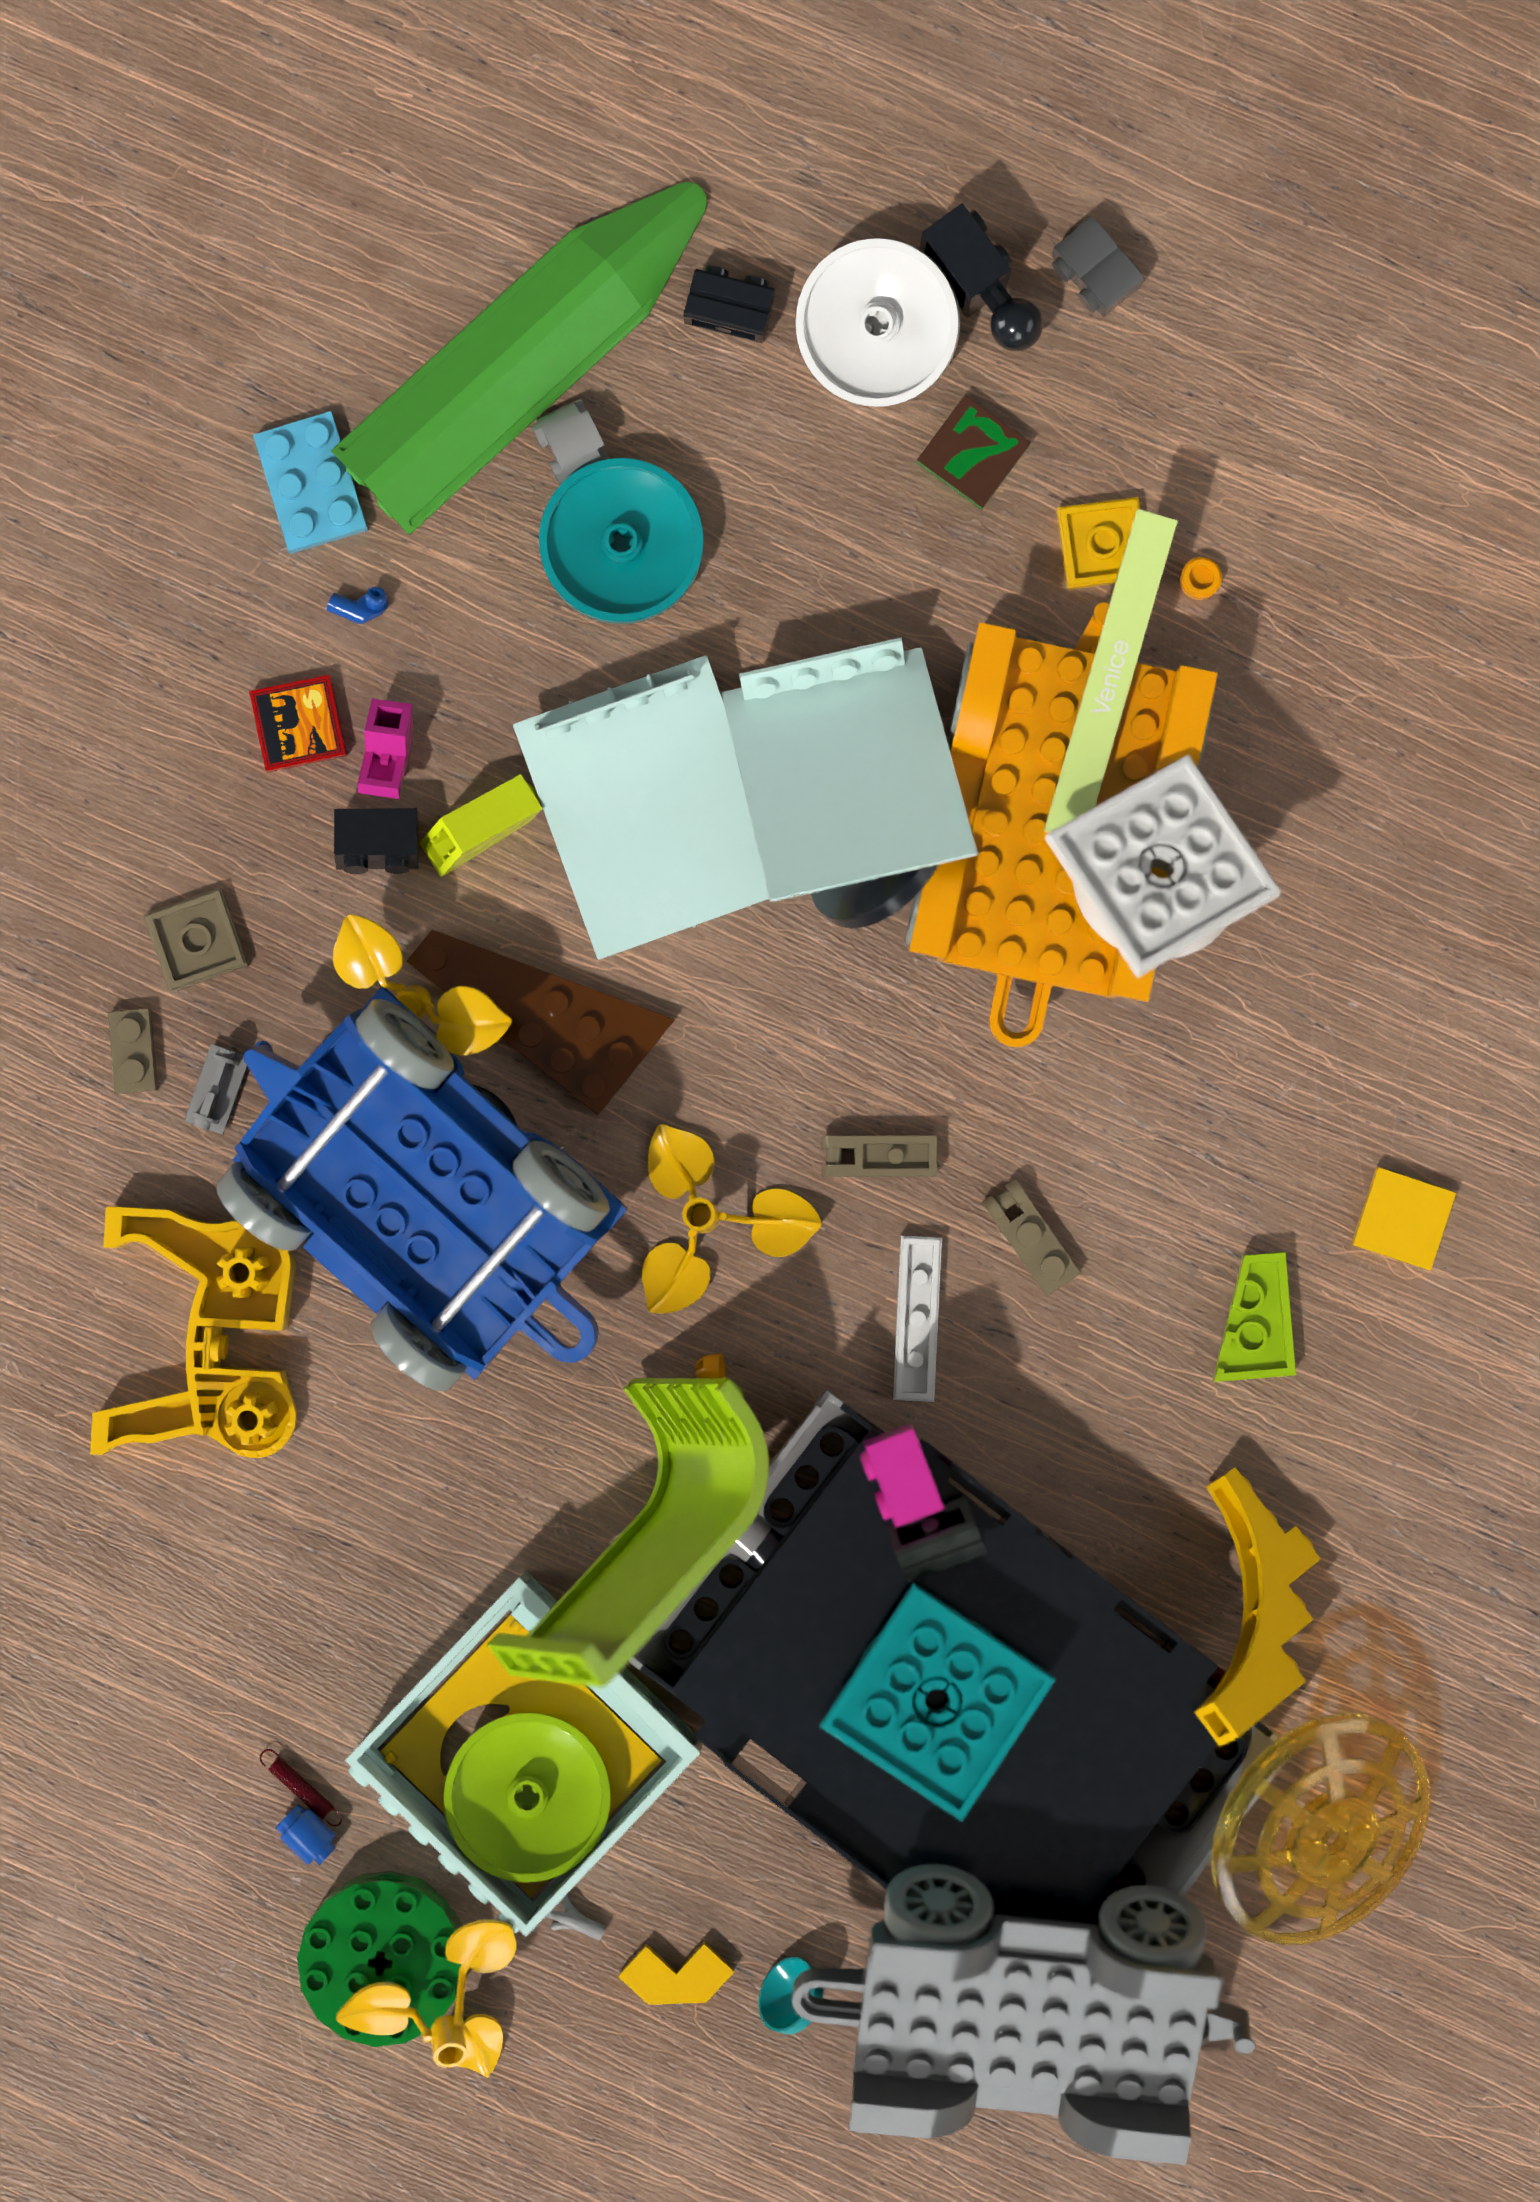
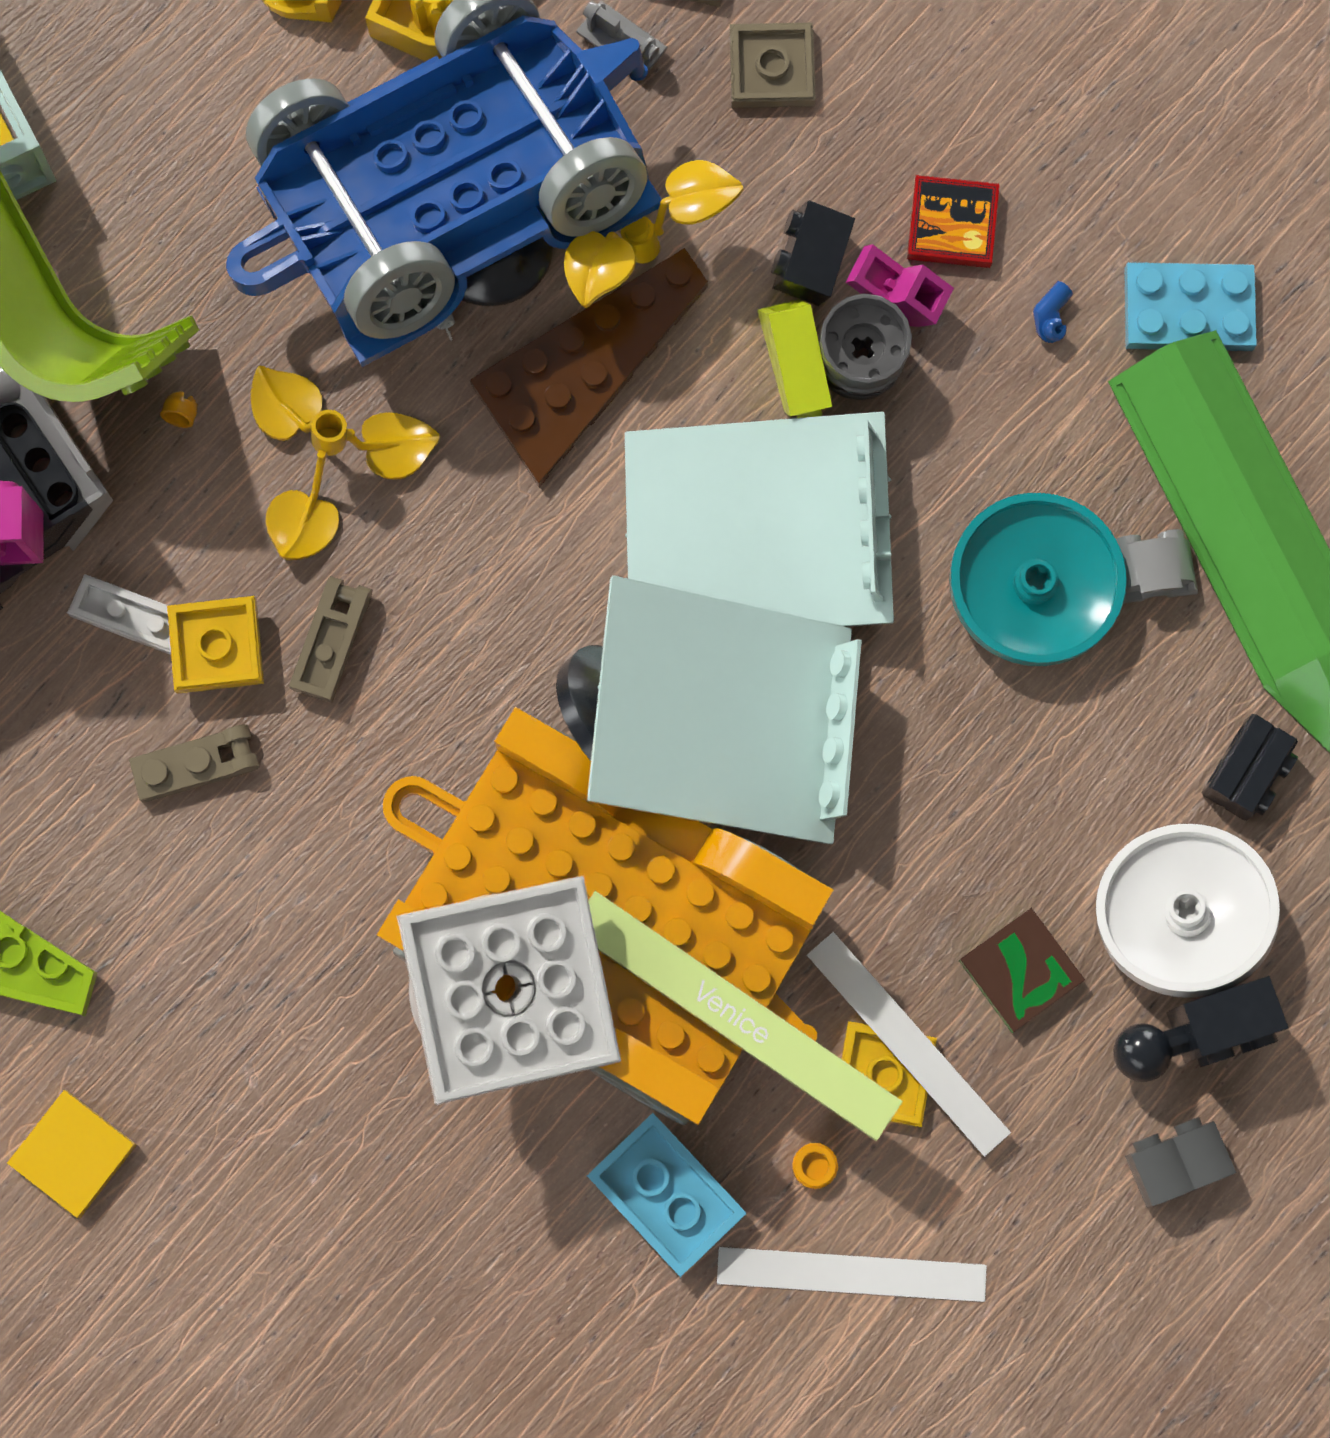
camera: 110 degrees right, 10 degrees down
(446, 742) = (866, 323): none -> flat silver wheel
(920, 1255) = (215, 644): none -> yellow tile
(1071, 529) = (909, 1044): none -> white sticker
(1268, 695) = (666, 1194): none -> medium azure plate
(1280, 519) = (851, 1274): none -> white sticker

